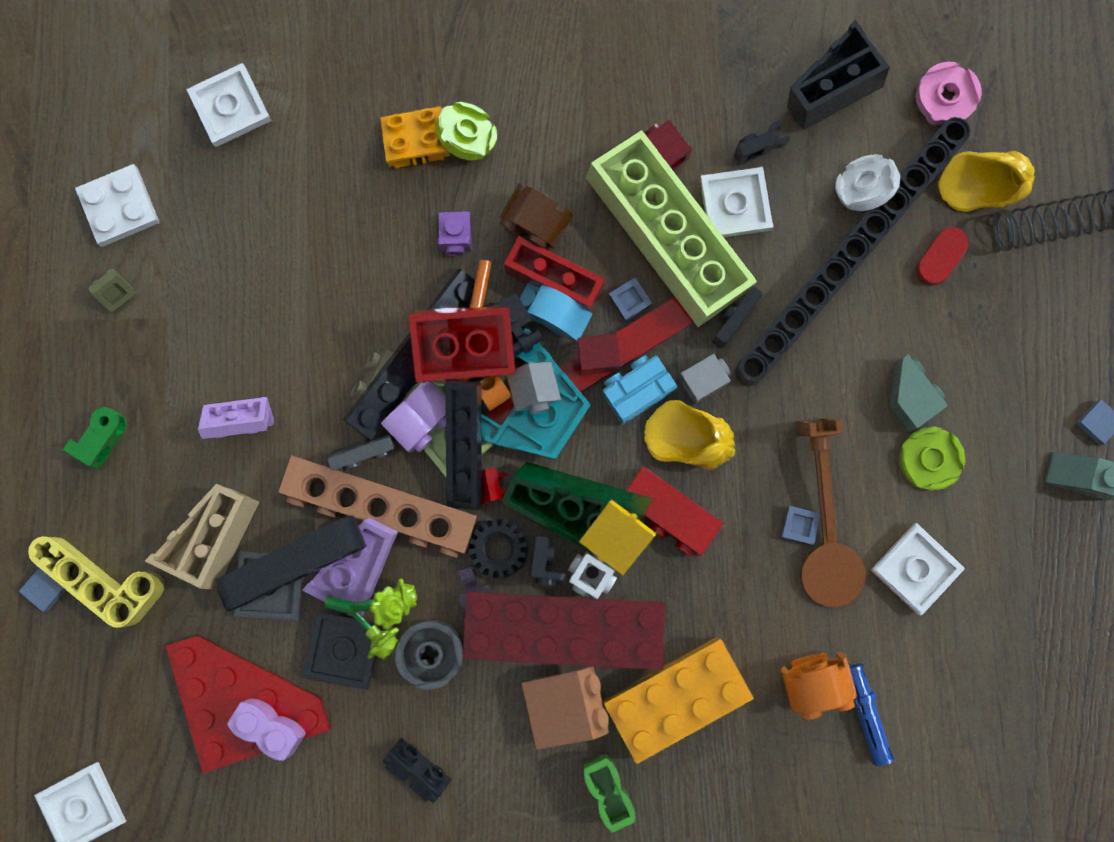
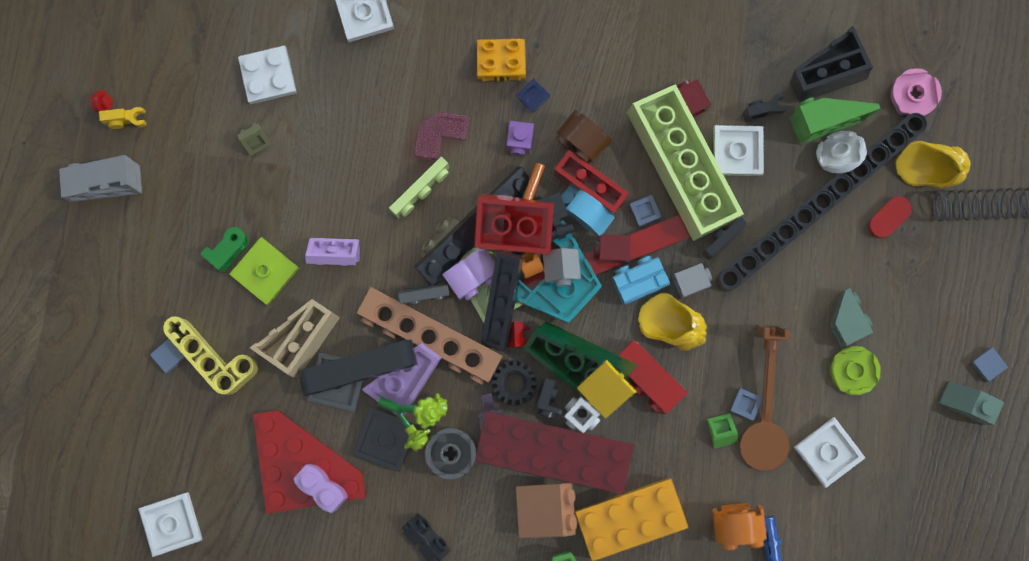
camera: 10 degrees right, 0 degrees up
(152, 458) = (264, 271): none -> lime plate
(336, 318) = (420, 188): none -> yellowish green plate
(347, 236) = (438, 127): none -> clear pink plate
(463, 176) = (533, 95): none -> clear blue plate
(465, 131) = (541, 62): lime tile -> none
(776, 564) = (722, 431): none -> bright green slope
(843, 139) = (828, 116): none -> bright green slope

